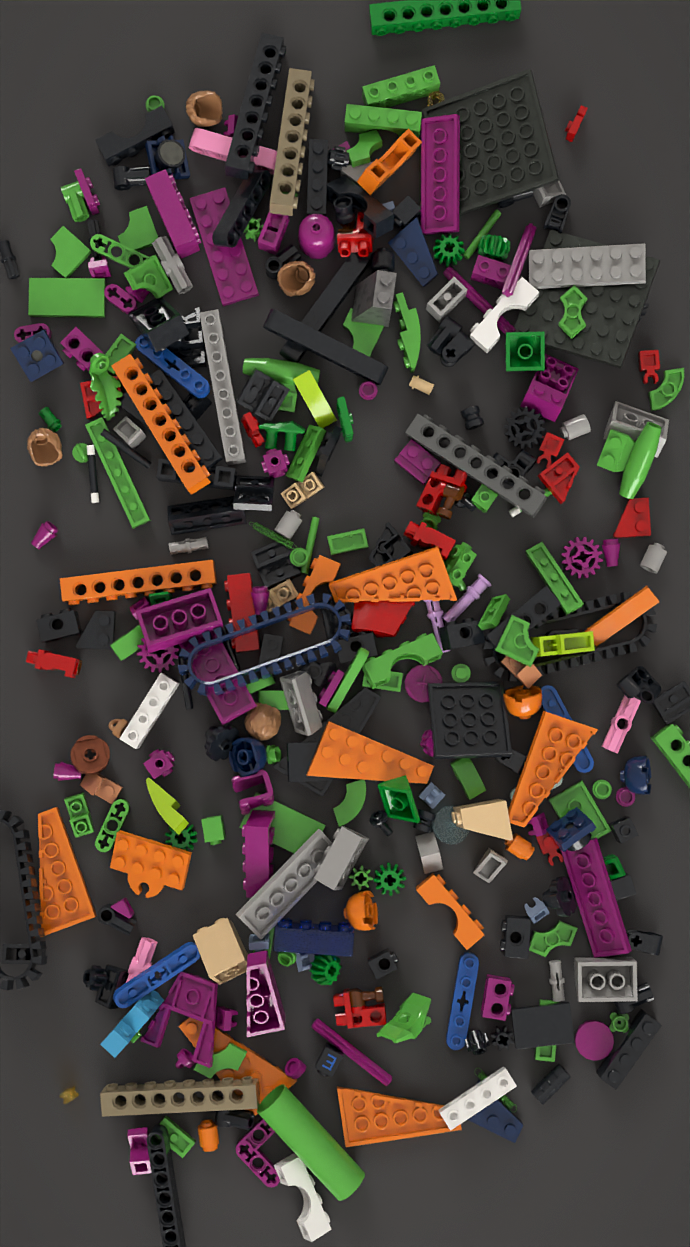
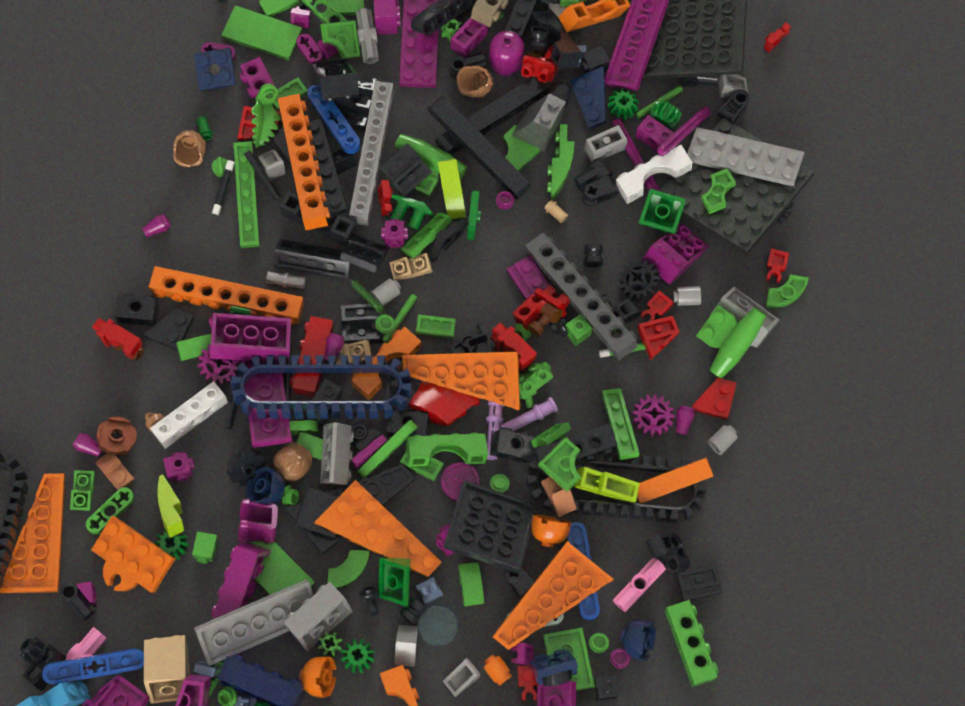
camera: 15 degrees right, 15 degrees down
(484, 817) = (471, 626): tan slope -> none

